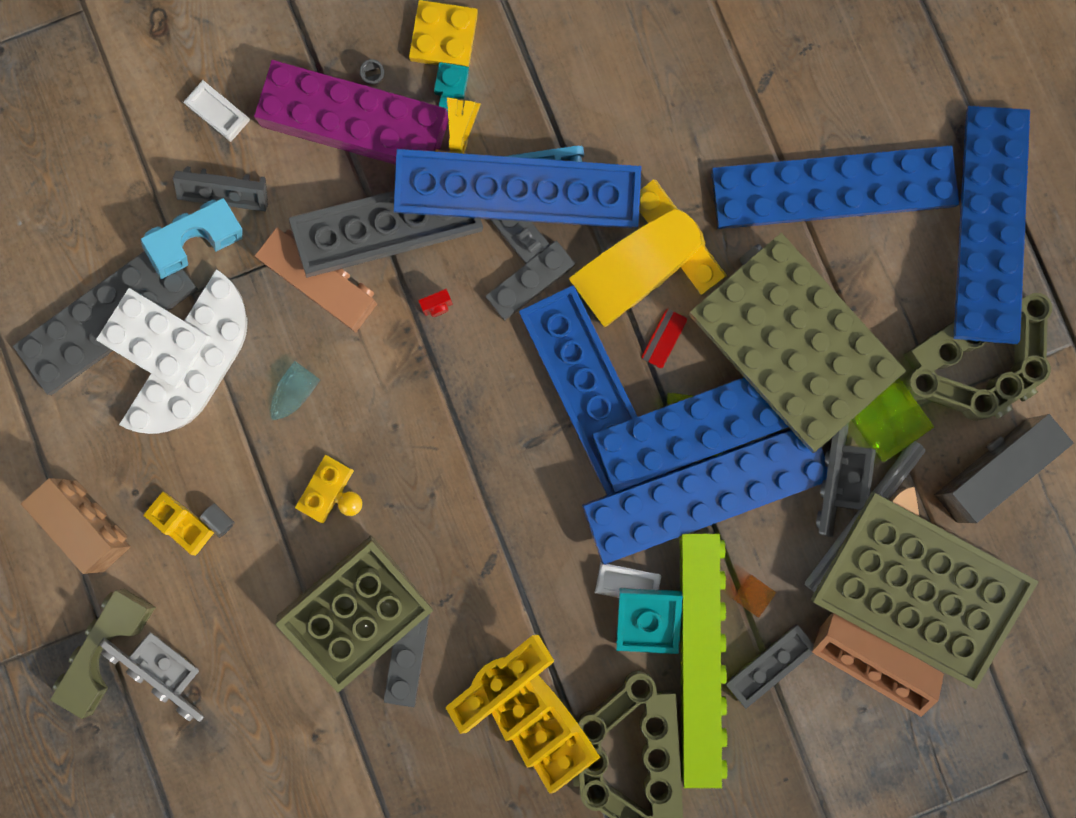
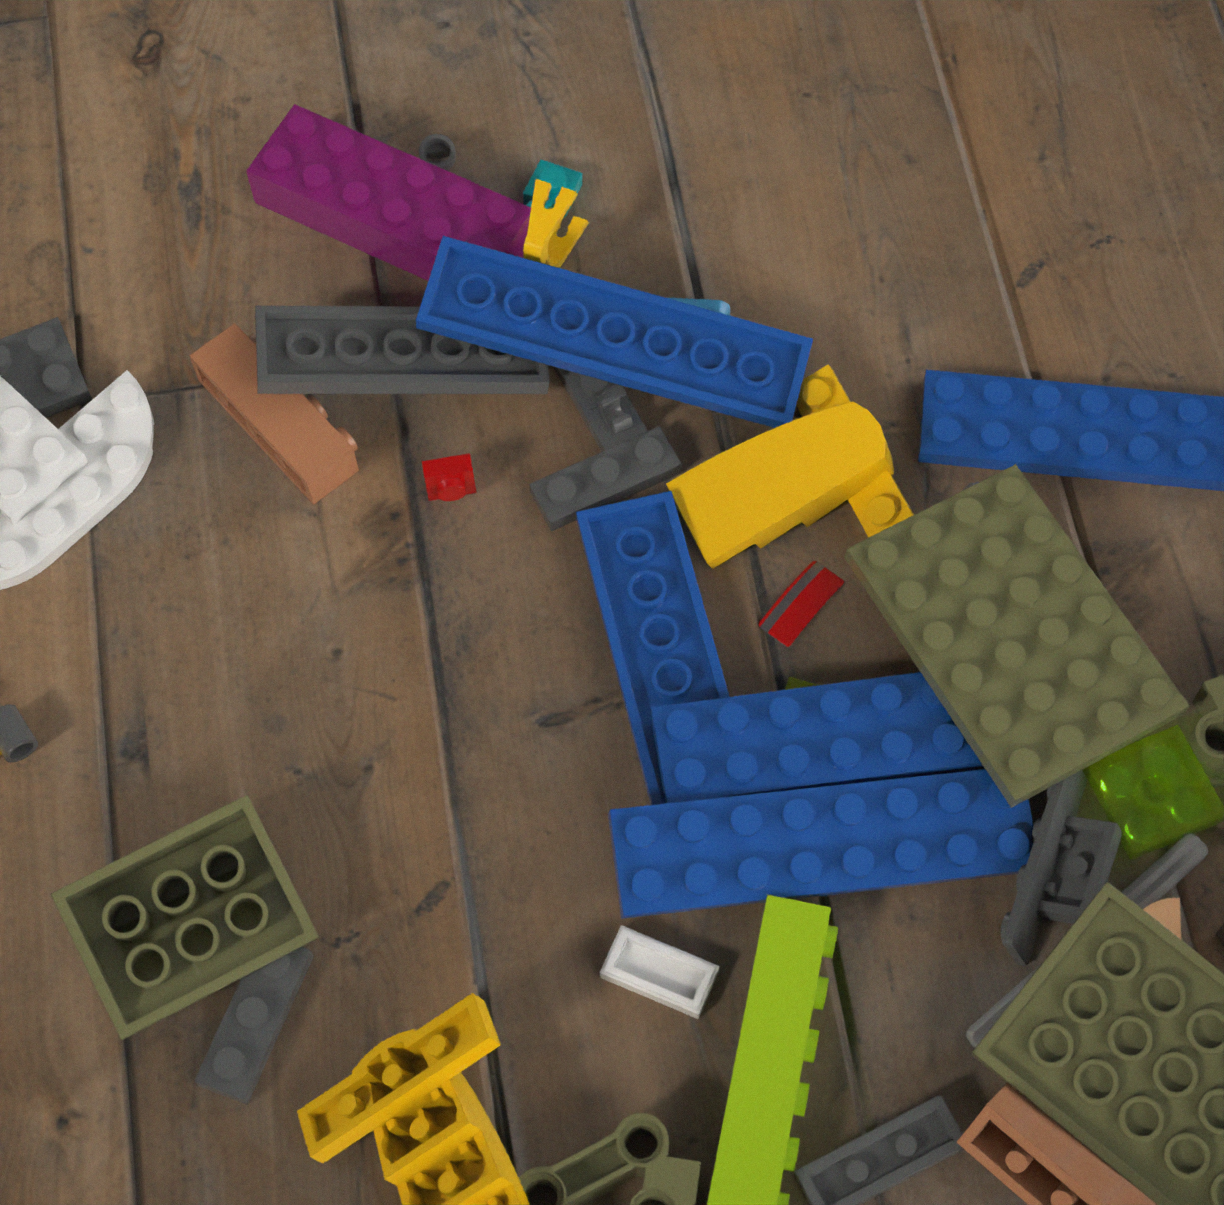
camera: 10 degrees right, 20 degrees down
(208, 187) = (168, 267): dark grey plate -> none
(212, 222) = (138, 304): medium azure arch -> none
(216, 110) = (195, 169): white tile -> none
(292, 391) = (192, 567): clear light blue plate -> none
(326, 490) = (200, 721): yellow plate -> none
(443, 34) = (555, 126): yellow plate -> none
(649, 620) = (681, 1033): teal plate -> none
(754, 595) = (873, 1036): clear orange plate -> none

